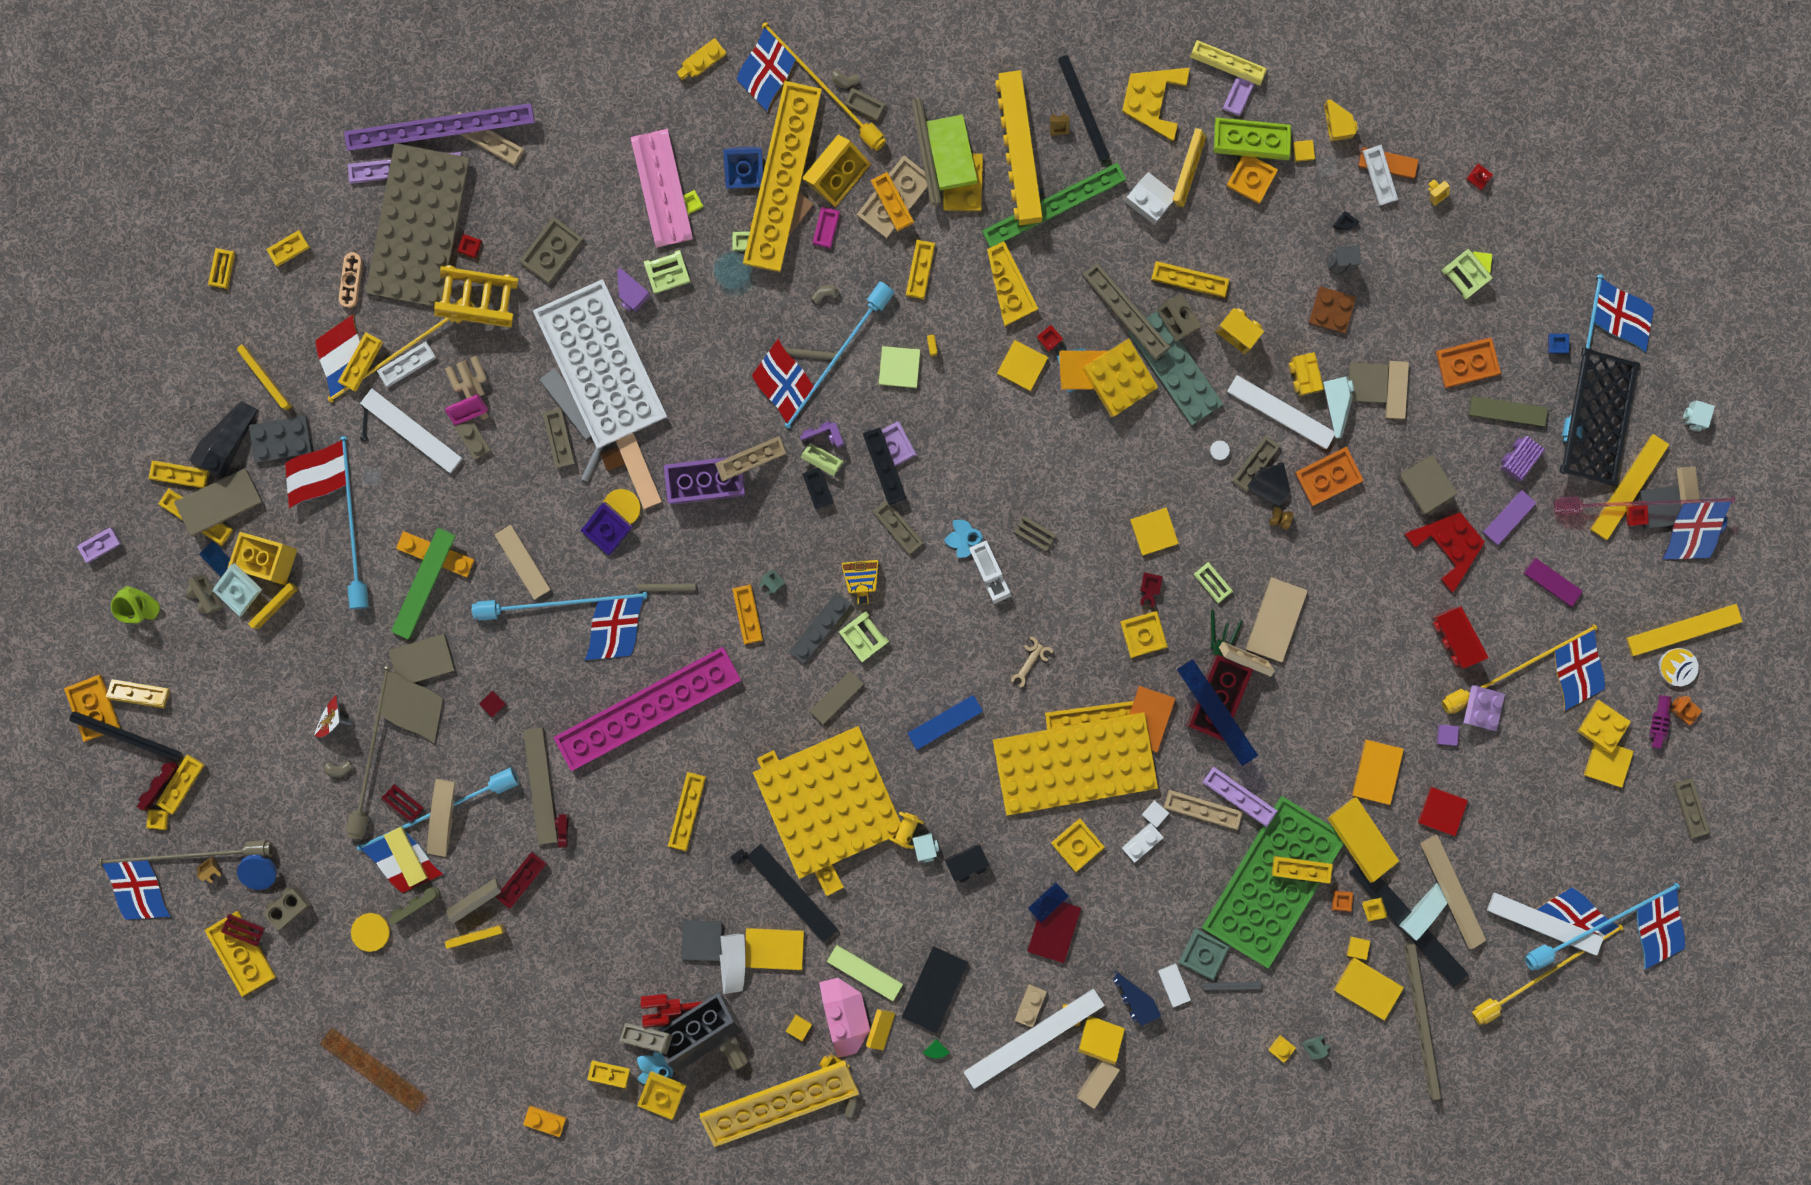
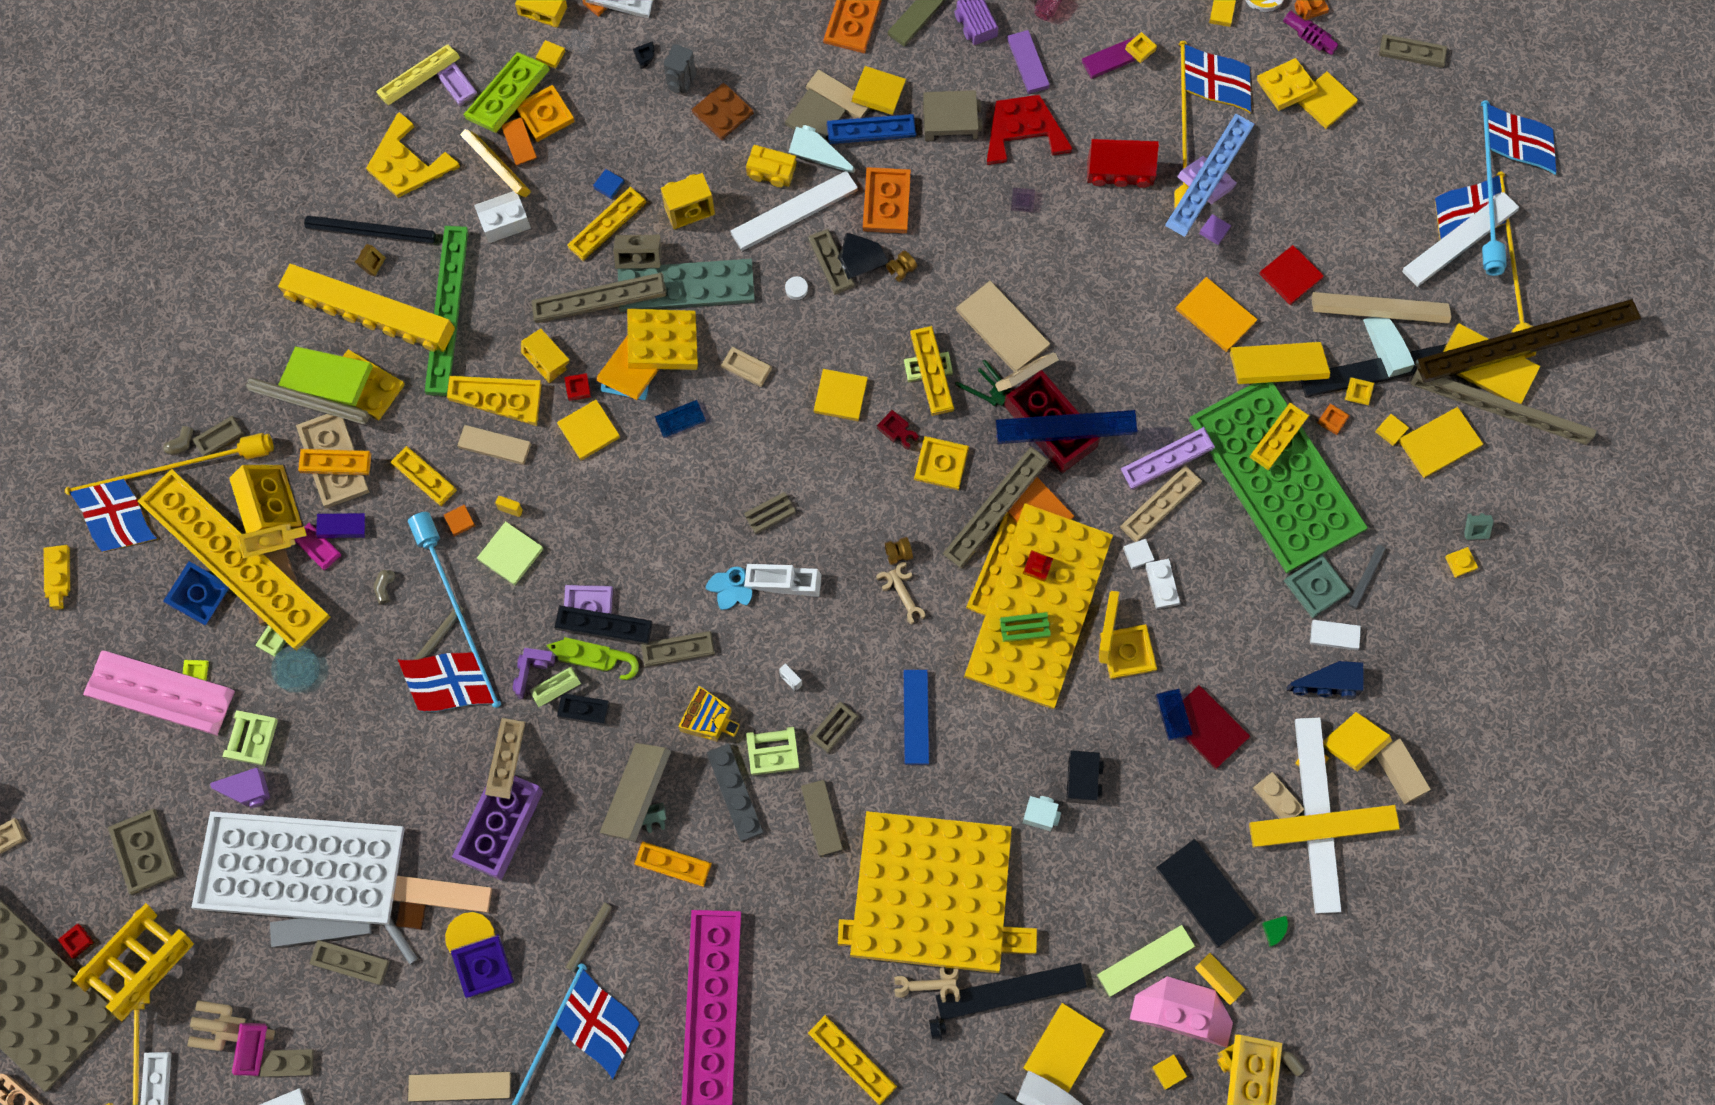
camera: 60 degrees left, 15 degrees down
(771, 847) = (946, 984): none -> tan bar
(780, 560) = (635, 792): none -> dark tan tile
(808, 194) = (268, 540): none -> yellow hinge
(850, 235) = (341, 525): none -> dark purple tile
(859, 471) = (592, 656): none -> lime plate
(889, 666) = (821, 743): none -> dark tan tile
(902, 316) = (459, 520): none -> orange tile
(906, 830) = (1011, 822): yellow hose -> none
(921, 619) = (790, 677): none -> white tile
(972, 305) = (494, 444): none -> tan tile
(1026, 1047) = (1324, 826): none -> yellow tile
(1059, 299) = (544, 355): none -> yellow hinge
(1060, 777) = (1021, 618): none -> bright green tile
(1061, 645) = (904, 550): none -> pearl gold wheel
(1068, 426) = (680, 418): none -> clear blue tile
(1085, 822) = (1108, 628): none -> yellow tile
(1101, 748) = (1038, 566): none -> red tile
(1130, 693) = (996, 507): none -> dark tan tile
(1136, 450) = (746, 366): none -> tan tile
(1210, 588) = (932, 371): none -> yellow tile
(1217, 173) = (519, 141): none -> orange slope
(1222, 261) = (608, 184): none -> blue tile
(1381, 431) = (871, 129): none -> blue tile
(1389, 577) = (1022, 200): none -> clear purple tile
(1417, 418) = (878, 90): none -> yellow tile
(1450, 994) = (1505, 378): none -> yellow tile
(1483, 1016) = (1528, 340): none -> dark brown plate
(1485, 710) = (1209, 175): none -> light blue tile
(1569, 598) = (1141, 47): none -> yellow plate

